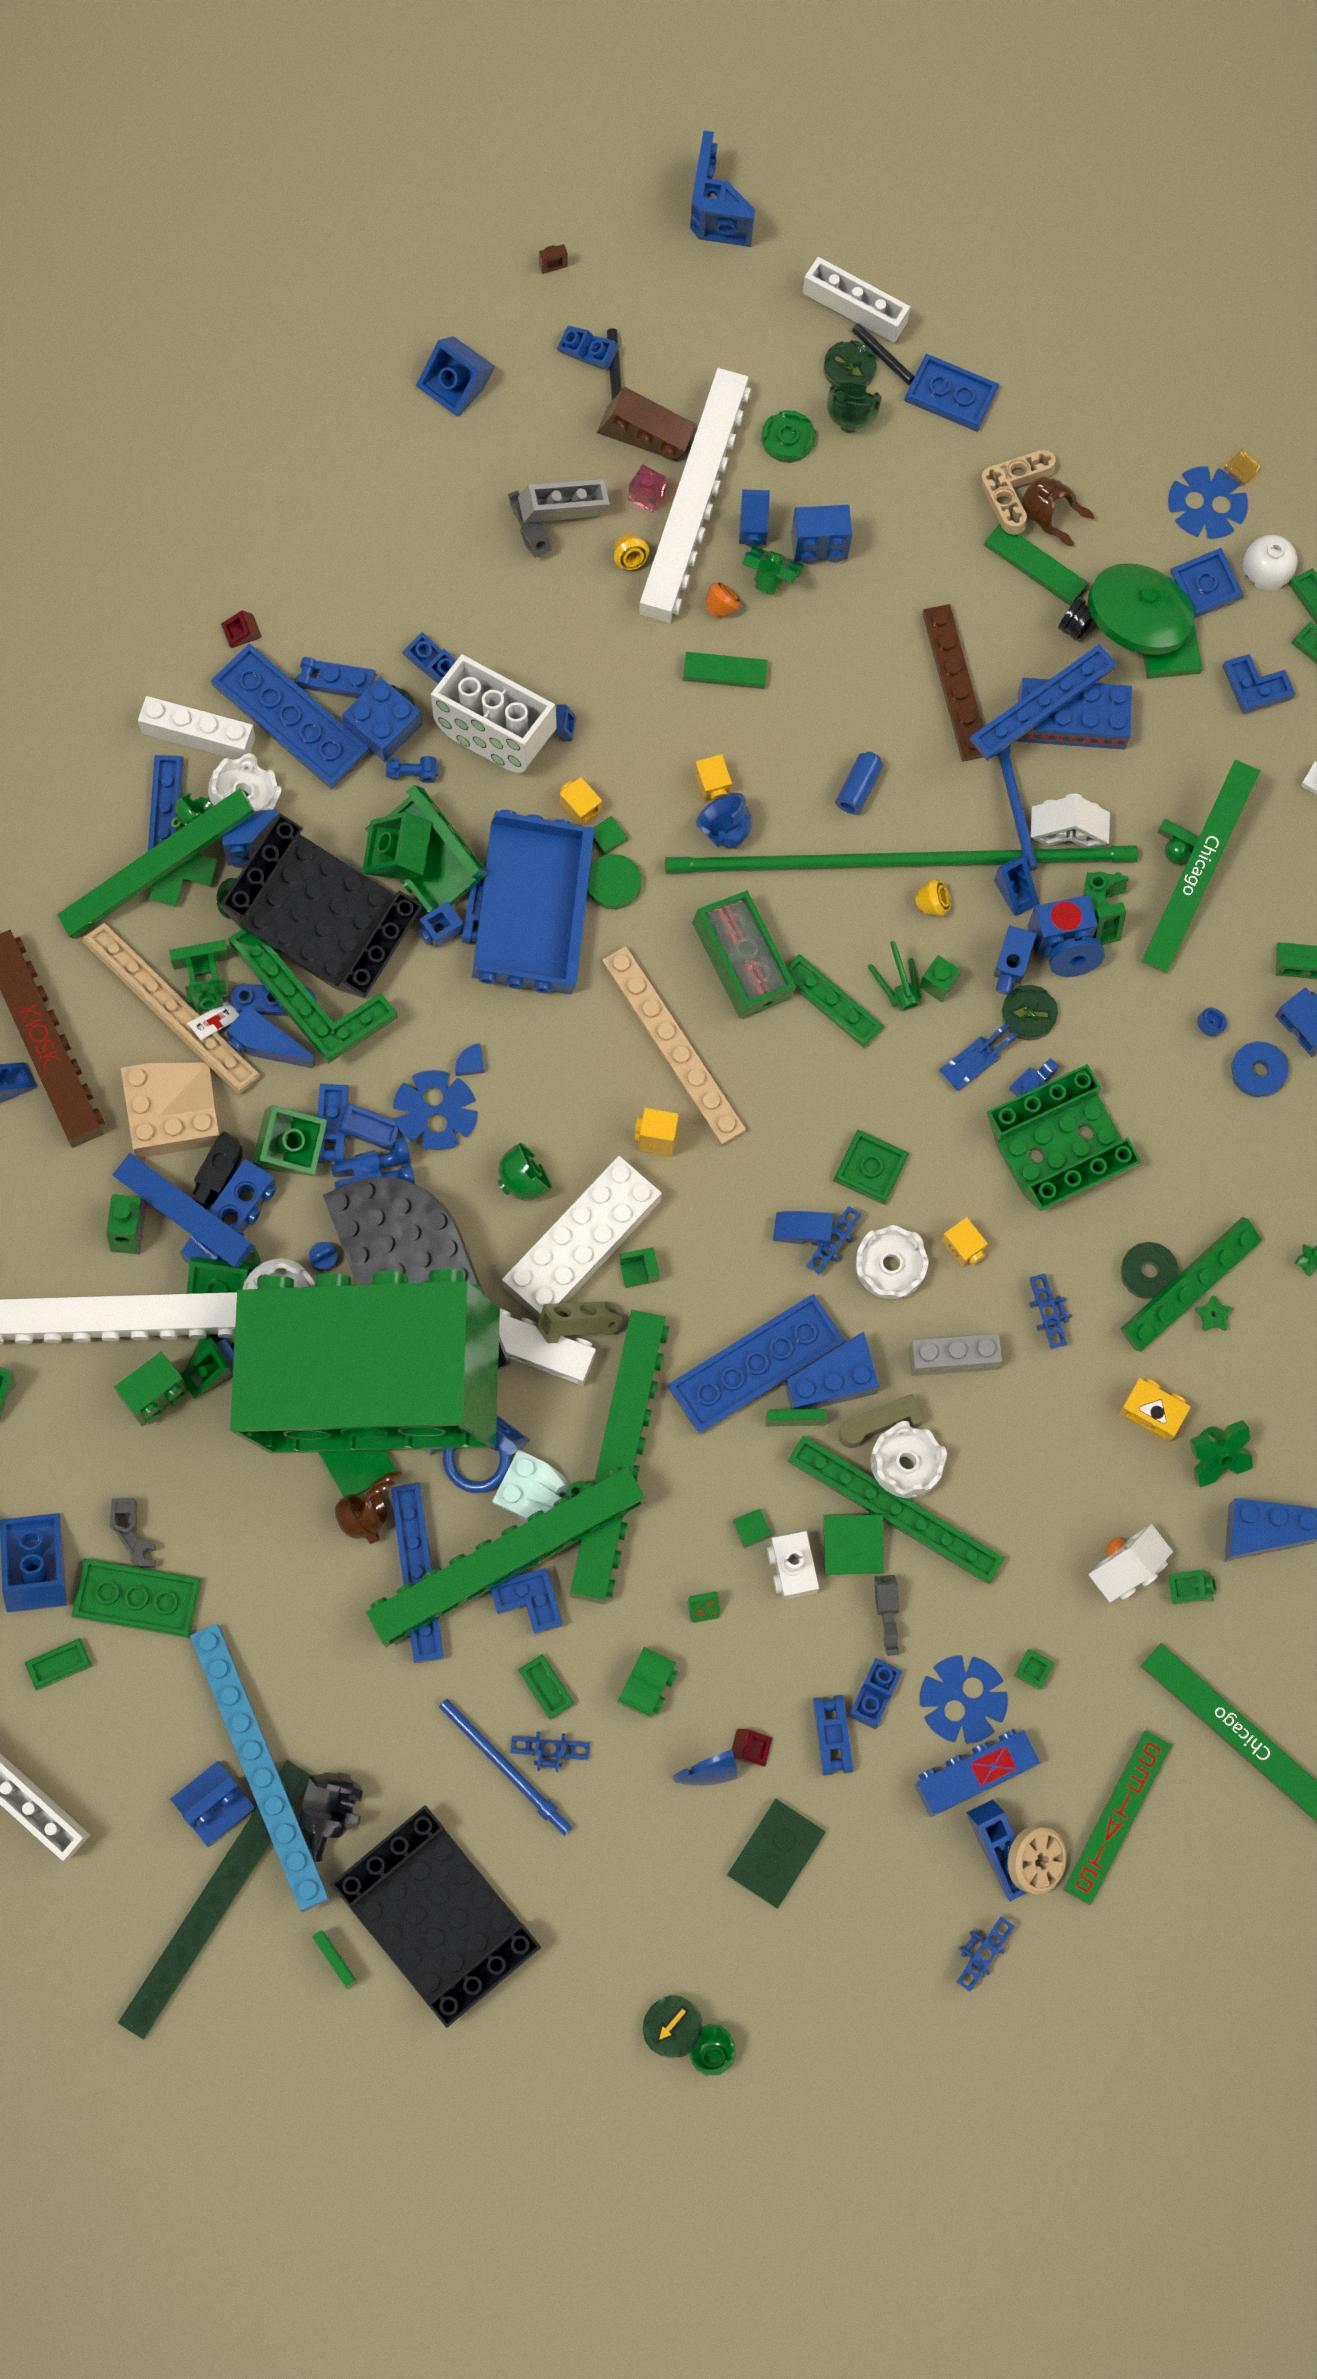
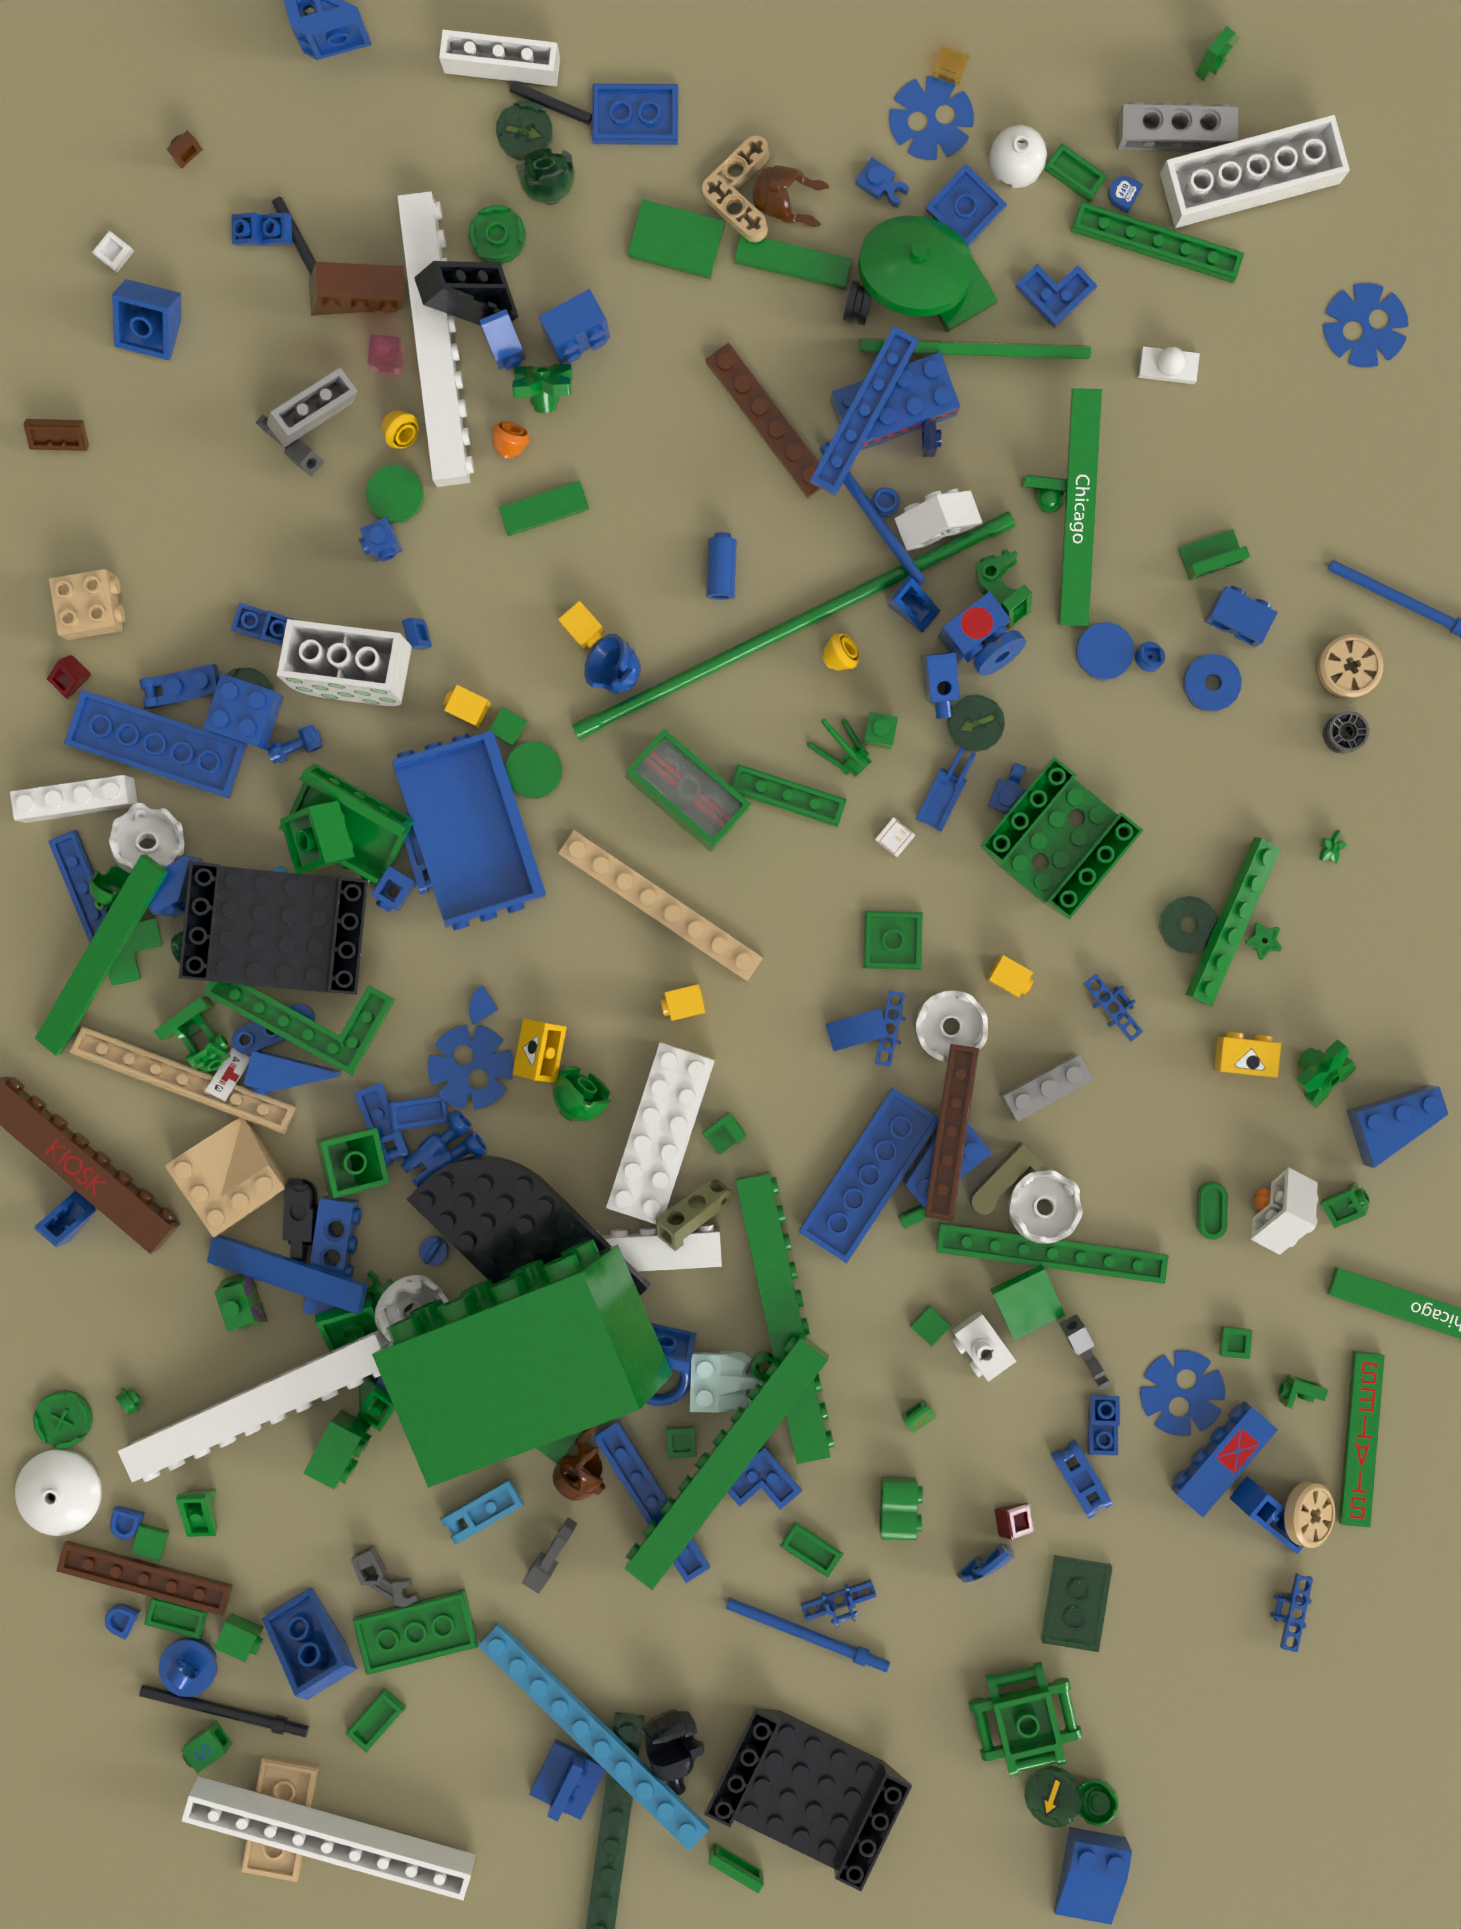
camera: 20 degrees left, 15 degrees up
(254, 1511) = (483, 1511): none -> dark azure plate
(289, 576) = (87, 604): none -> tan brick
(290, 1584) = (545, 1564): none -> dark grey piece
(331, 432) = (56, 434): none -> reddish brown plate
(451, 312) = (113, 251): none -> white tile
(470, 1529) = (681, 1442): none -> green plate
(505, 1118) = (539, 1050): none -> yellow brick
(569, 633) = (380, 540): none -> blue brick
(600, 603) = (395, 493): none -> green tile
(674, 2130) = (1092, 1875): none -> blue slope
(678, 1940) = (1025, 1720): none -> green brick
(741, 461) = (466, 289): none -> black wedge
(850, 1349) = (951, 1132): none -> reddish brown tile
(912, 1078) = (895, 837): none -> white tile
(942, 504) = (676, 239): none -> green tile
(1030, 792) = (886, 501): none -> blue plate
(1063, 1539) = (1211, 1210): none -> green tile
(1083, 1742) = (1306, 1390): none -> green bracket
(1094, 756) = (930, 438): none -> clear blue plate
(1140, 531) = (877, 180): none -> blue plate
(1173, 1000) = (1105, 651): none -> blue tile
(1178, 705) = (988, 349): none -> green tile

